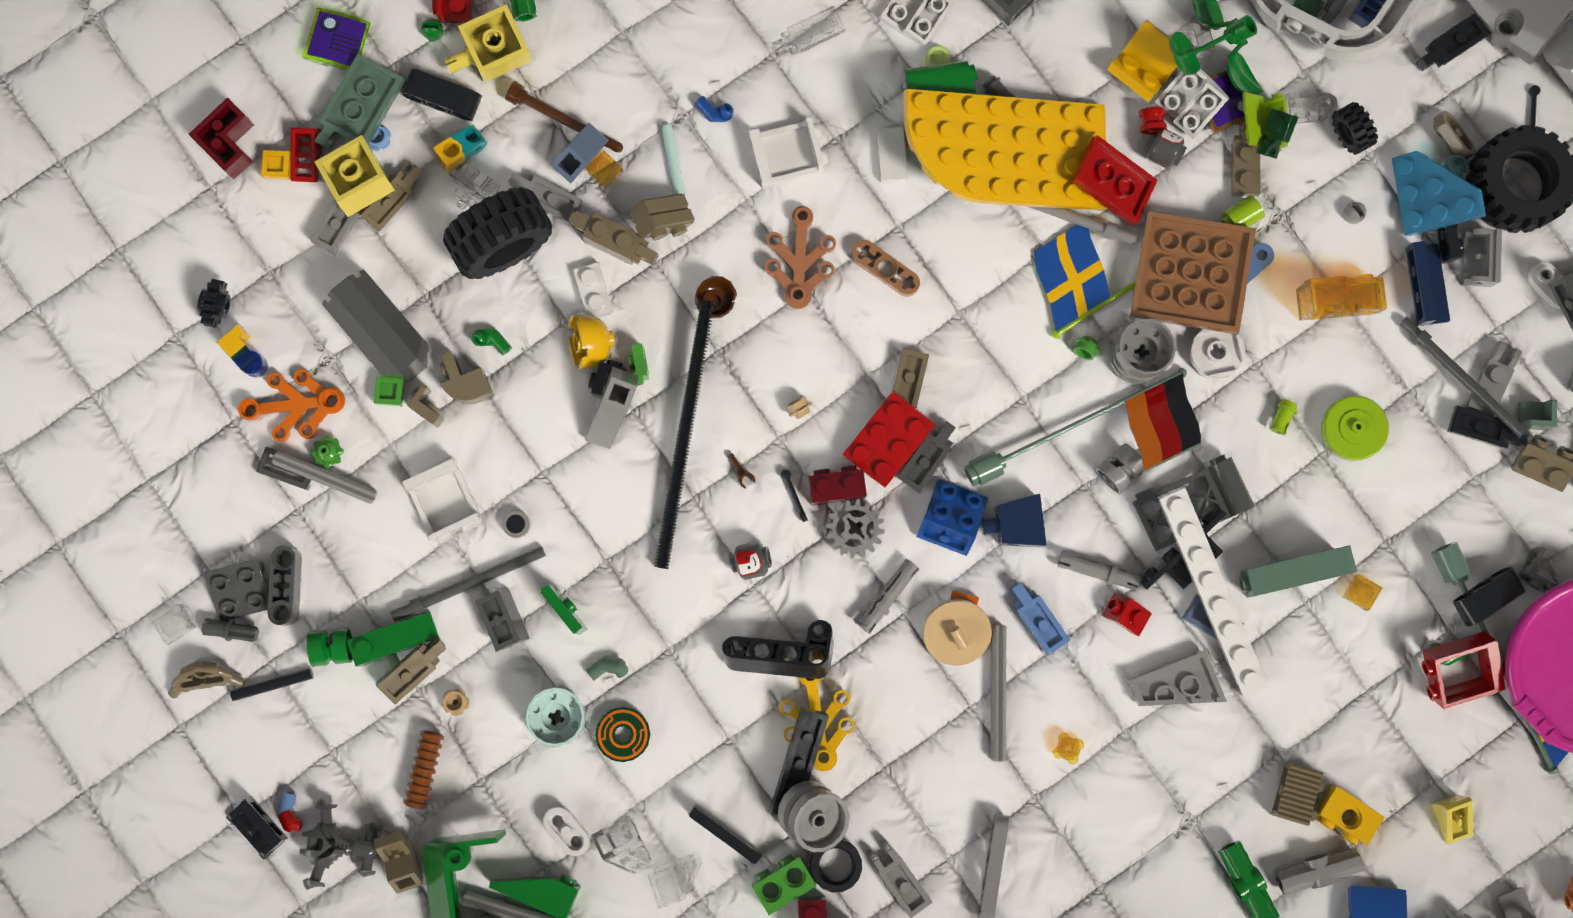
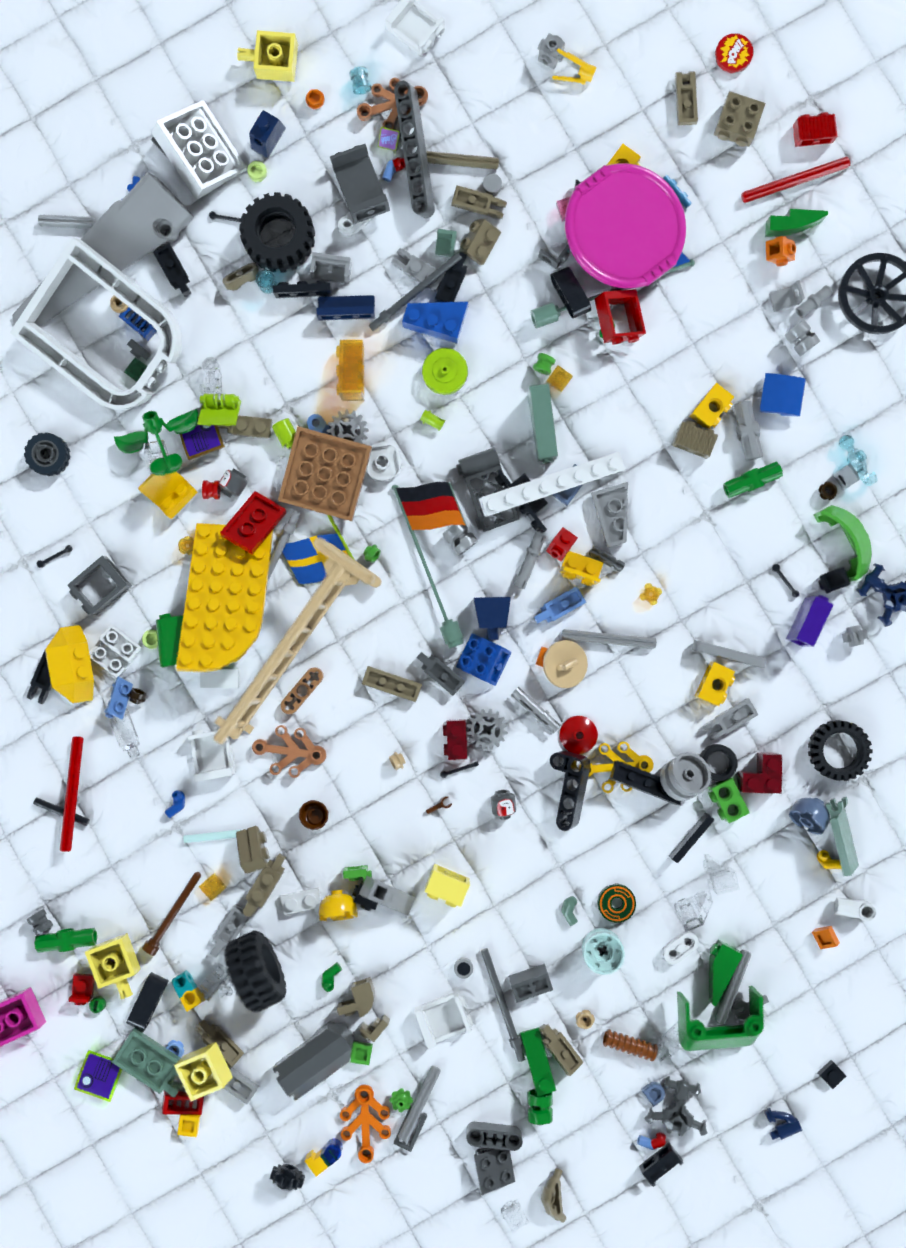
camera: 80 degrees left, 5 degrees up
(219, 135) = (166, 1167): dark red brick -> none
(229, 630) = (522, 1176): dark grey axle -> none
(272, 684) = (562, 1148): black bar -> none
(357, 810) = (654, 1092): none -> sand blue tile
(400, 861) = (692, 1065): dark tan brick -> none
(564, 608) = (528, 940): green plate -> none
(579, 152) = (199, 905): sand blue slope -> none
(632, 488) = (447, 886): none -> light yellow brick
(684, 434) = (406, 843): black axle -> none
(846, 671) = (569, 730): none -> red dish
(853, 20) = (119, 698): none -> medium blue hinge
(858, 45) = (136, 696): none -> dark brown plate
(889, 439) = (425, 700): red plate -> none
(965, 851) = (705, 690): none -> yellow brick
(996, 88) = (178, 598): dark grey pin -> none
(1062, 298) = (340, 572): none -> tan piece
(1074, 88) = (182, 545): none -> clear yellow plate
(1095, 644) = (582, 568): none -> yellow bracket
(1112, 681) = (607, 558): none -> dark grey axle
(1152, 341) = (371, 507): light grey wheel -> none
(1192, 101) = (200, 460): white slope -> none
(1264, 304) = (353, 424): none -> light grey gear
(1278, 129) = (227, 401): dark green plate -> none
(1352, 215) = (292, 356): light grey hinge -> none
(1354, 128) = (230, 347): black tyre -> none
(1381, 567) = (544, 364): none -> bright green wheel
(1427, 410) = (436, 319): none -> blue wedge
(1433, 194) = (283, 297): dark azure plate -> none
(1454, 817) = (718, 334): light yellow slope -> none

